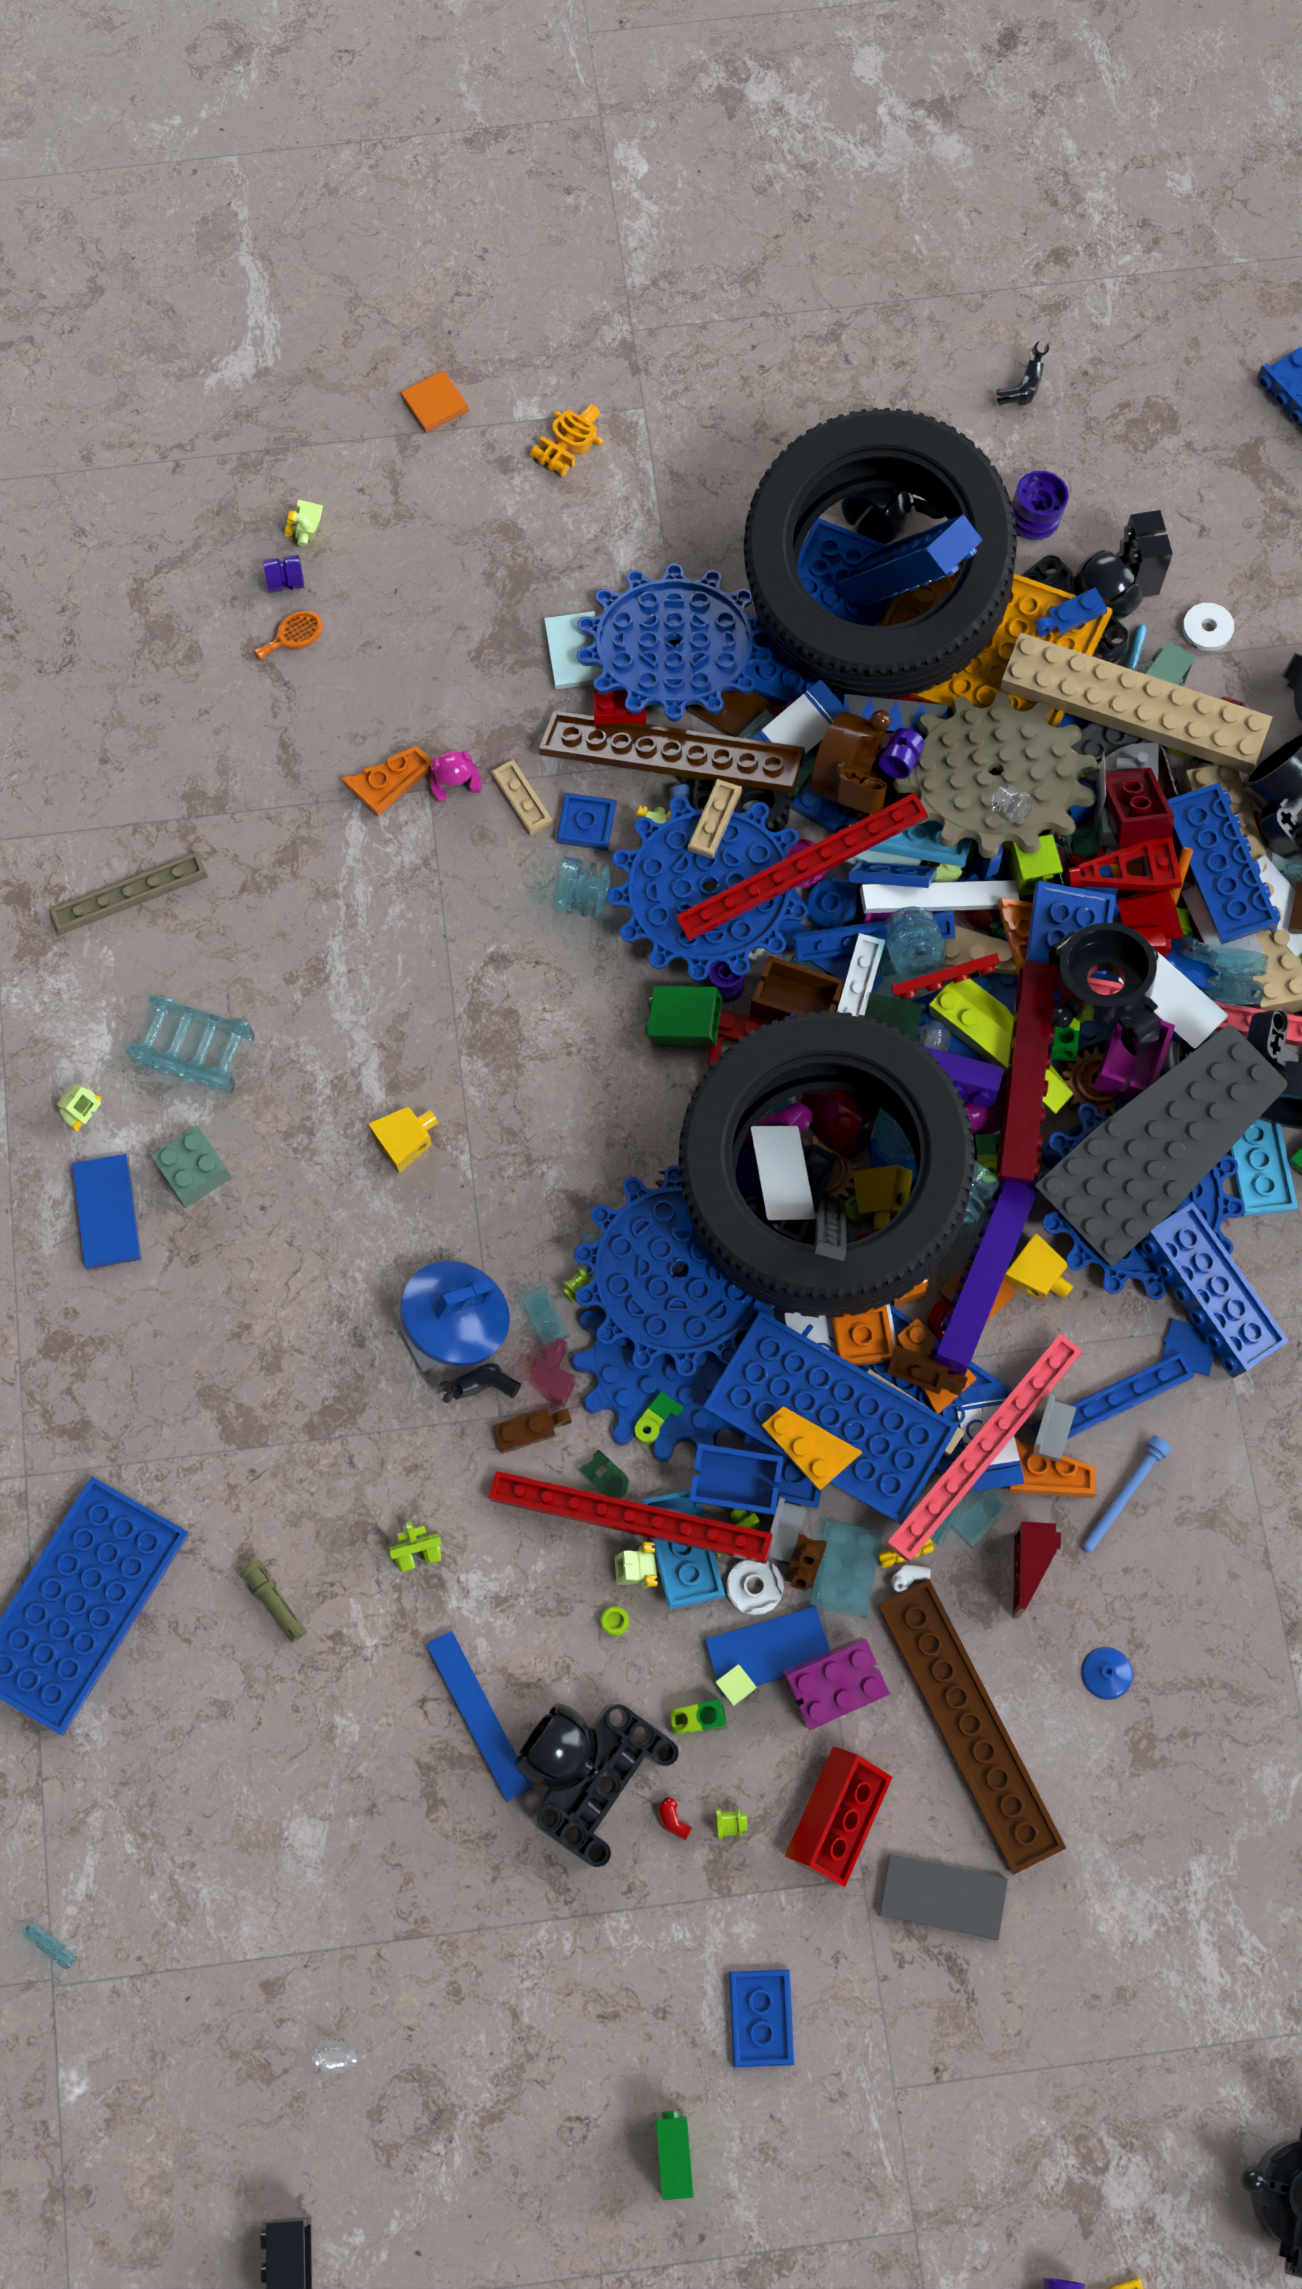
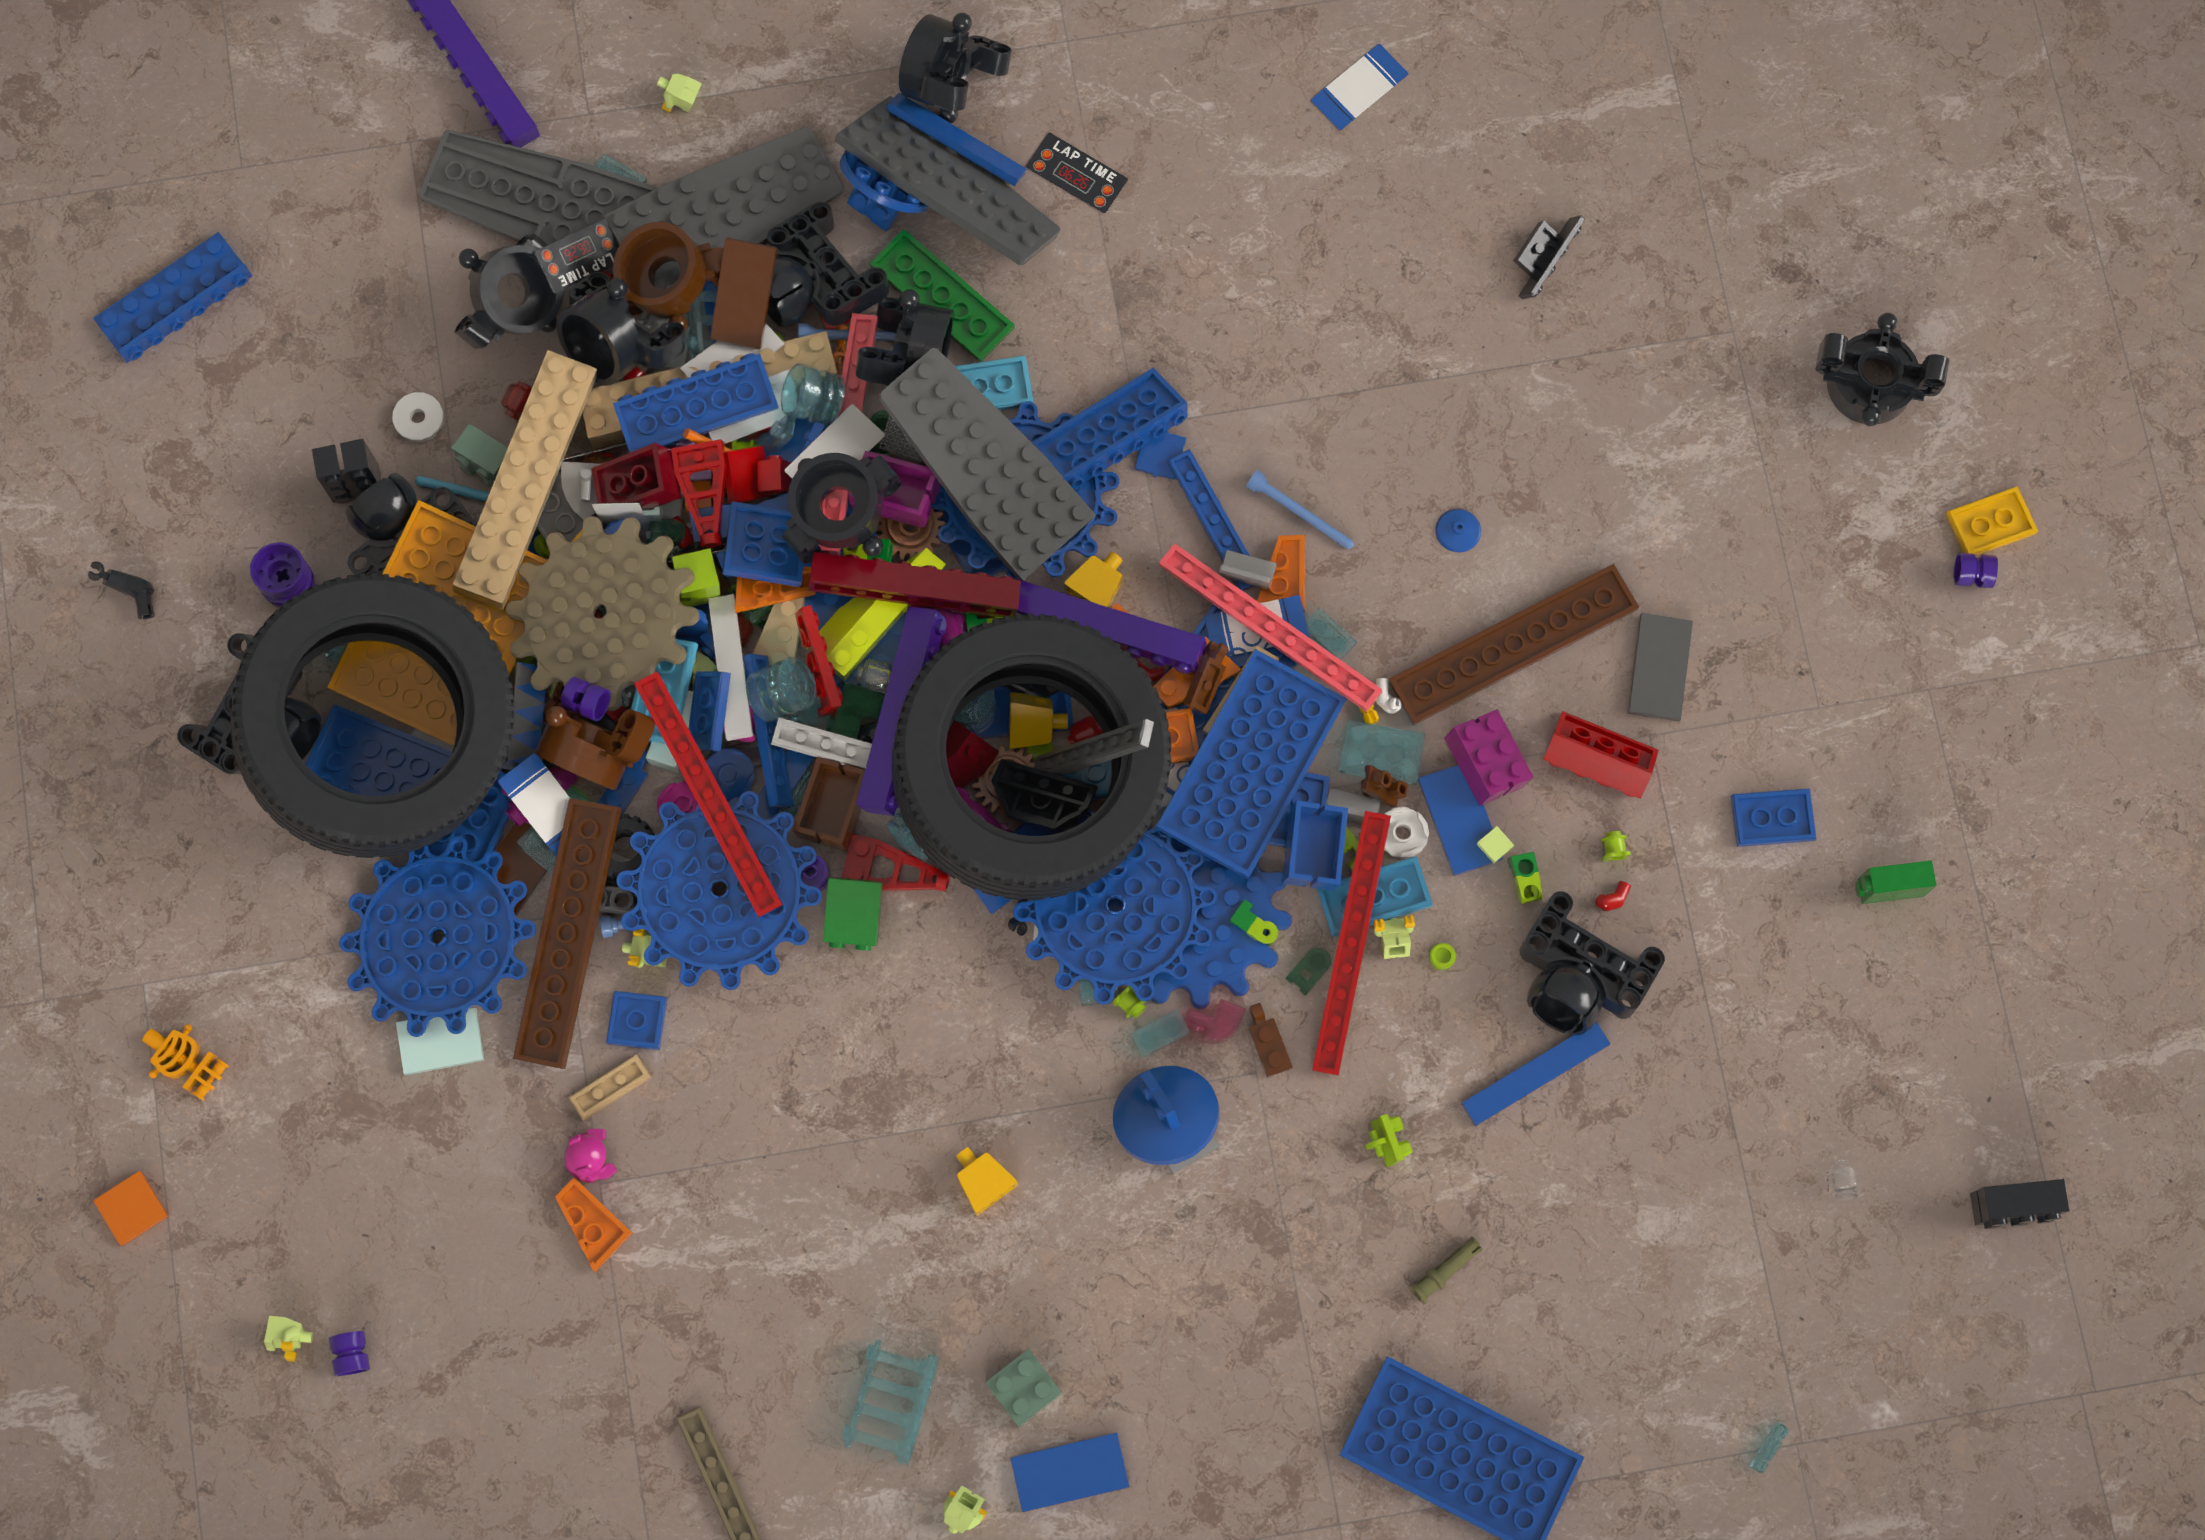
camera: 95 degrees left, 5 degrees up
(281, 641) = (434, 1363): orange piece -> none
(478, 1381) = (1224, 1090): black arm -> none
(582, 888) = (719, 1011): clear light blue wheel -> none
(612, 710) = (515, 997): red plate -> none
(715, 819) = (649, 883): tan tile -> none
(782, 1173) = (1028, 803): white sticker -> none
(809, 1447) = (1283, 779): light orange wing -> none
(910, 562) = (385, 685): blue brick -> none
(1011, 802) = (647, 591): clear head -> none
(1033, 1551) = (1370, 588): dark red slope -> none
(1072, 613) = (423, 536): blue plate -> none

